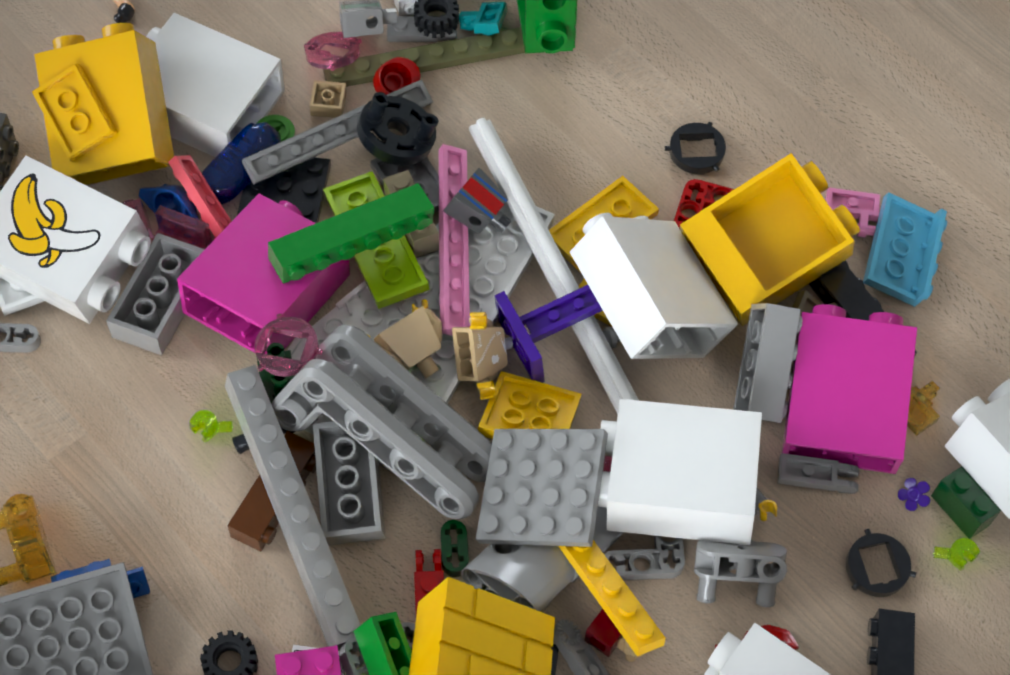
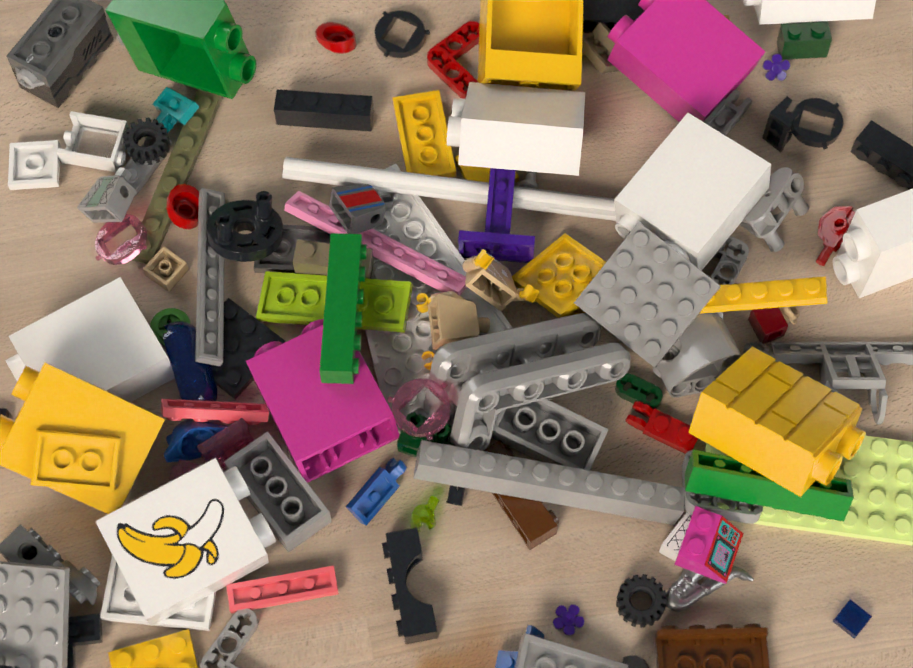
camera: 55 degrees left, 5 degrees up
(72, 350) = (282, 589): none -> coral plate
(159, 428) = (417, 618): none -> black arch
(176, 606) = (568, 619): none -> dark purple plant
(201, 372) = (376, 491): none -> blue plate
(569, 130) = (324, 110): none -> black brick
(653, 100) = (336, 37): none -> red hat
(768, 360) = (632, 91): light grey brick -> none
(843, 521) = (778, 125): none -> black hinge
(960, 548) = (836, 69): clear neon green piece -> none

